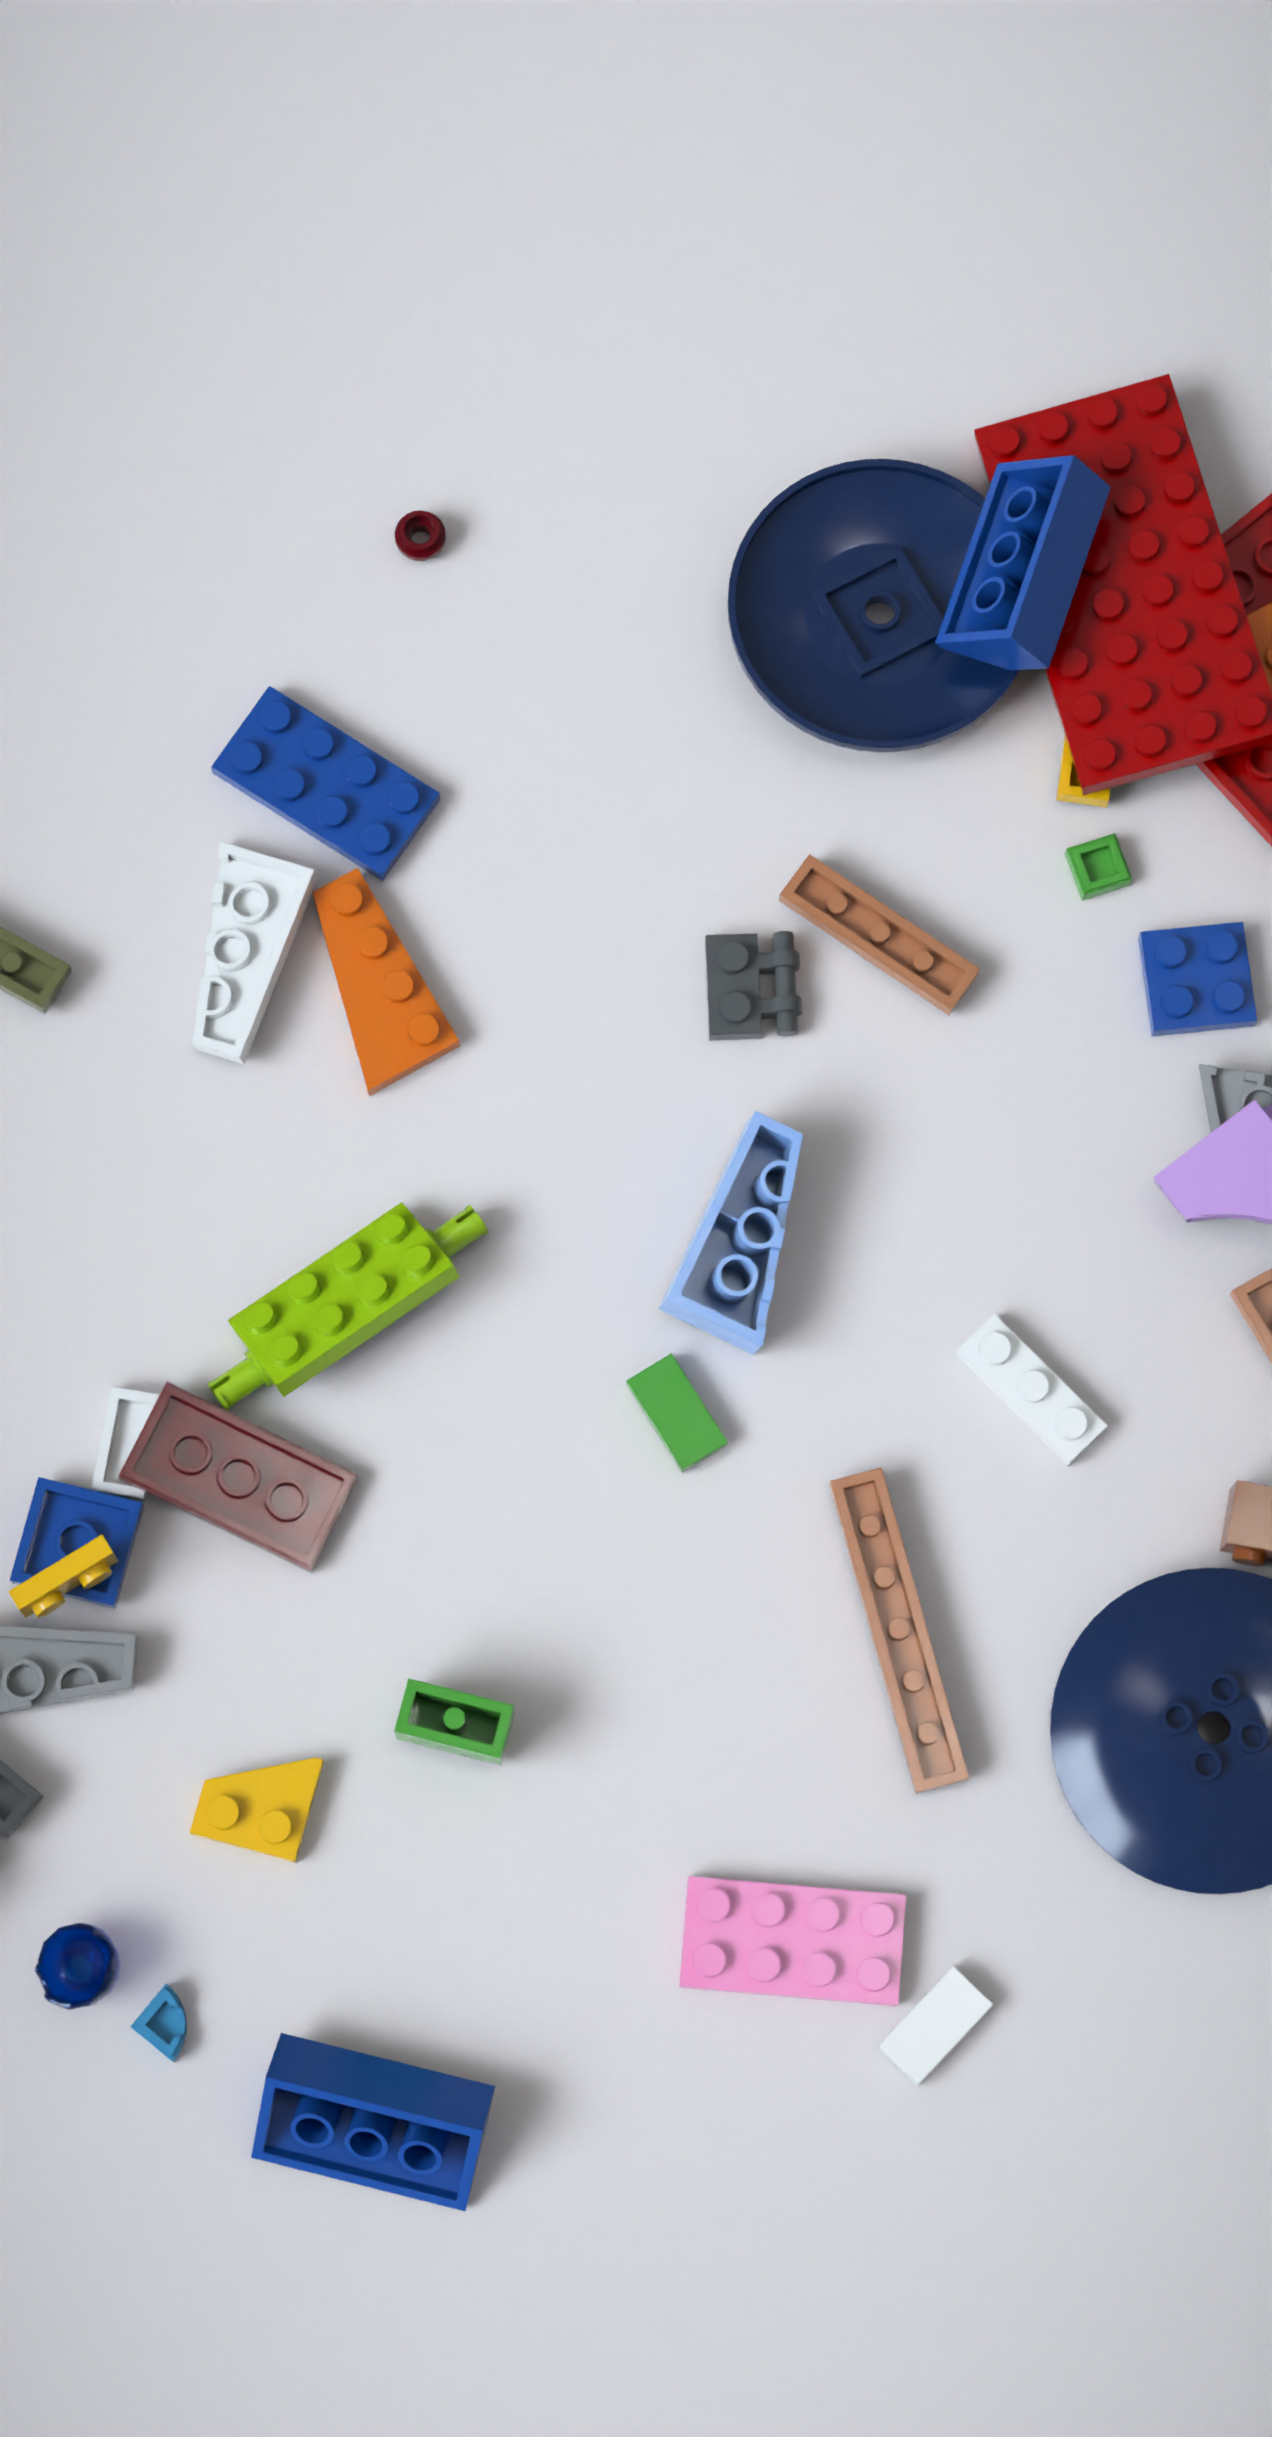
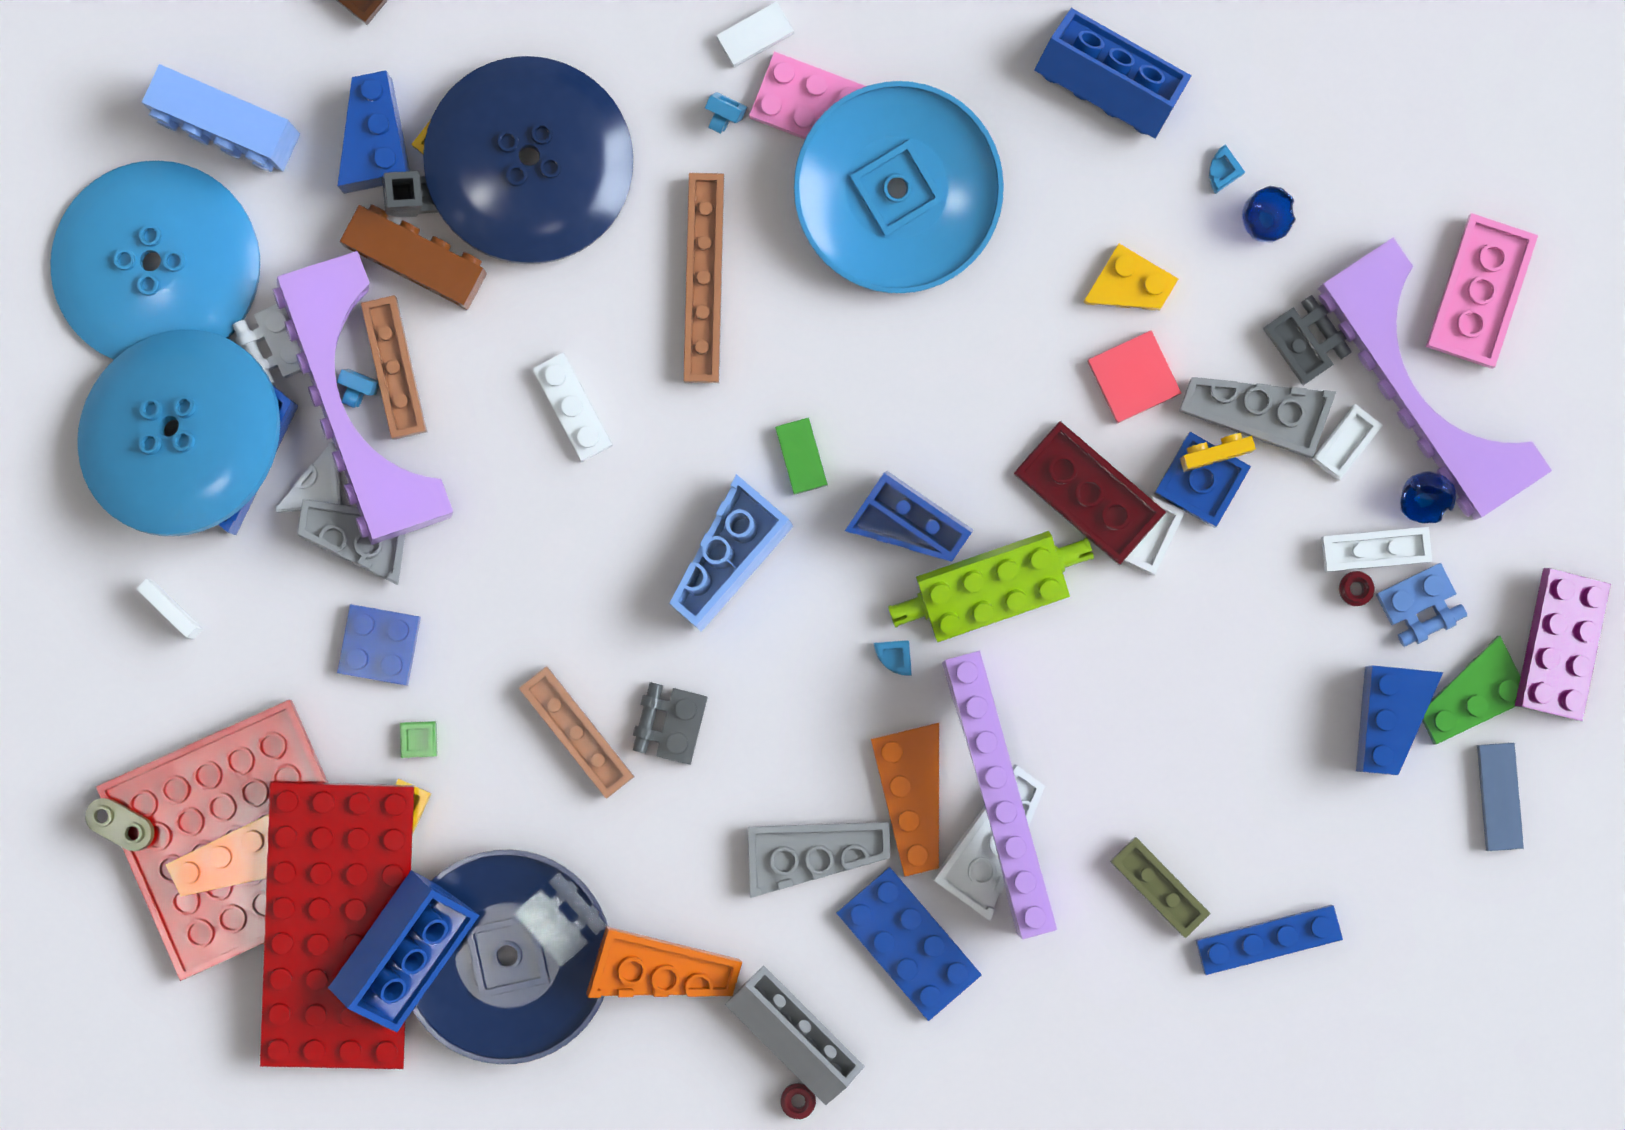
camera: 155 degrees left, 10 degrees up
(218, 1668) = (1134, 376): none -> coral tile
(308, 1085) = (1000, 794): none -> lavender arch
(449, 611) = (795, 1035): none -> light grey brick
(454, 1722) = (997, 295): bright green brick -> none
(458, 1168) = (895, 656): none -> dark azure tile
(490, 1357) = (909, 520): none -> blue wedge
(510, 861) = (808, 852): none -> light grey wing
(631, 1766) = (949, 179): none -> dark azure dish
(677, 645) = (650, 966): none -> orange wing
(829, 655) = (552, 927): none -> clear plate
(944, 1890) = (725, 111): none -> dark azure tile

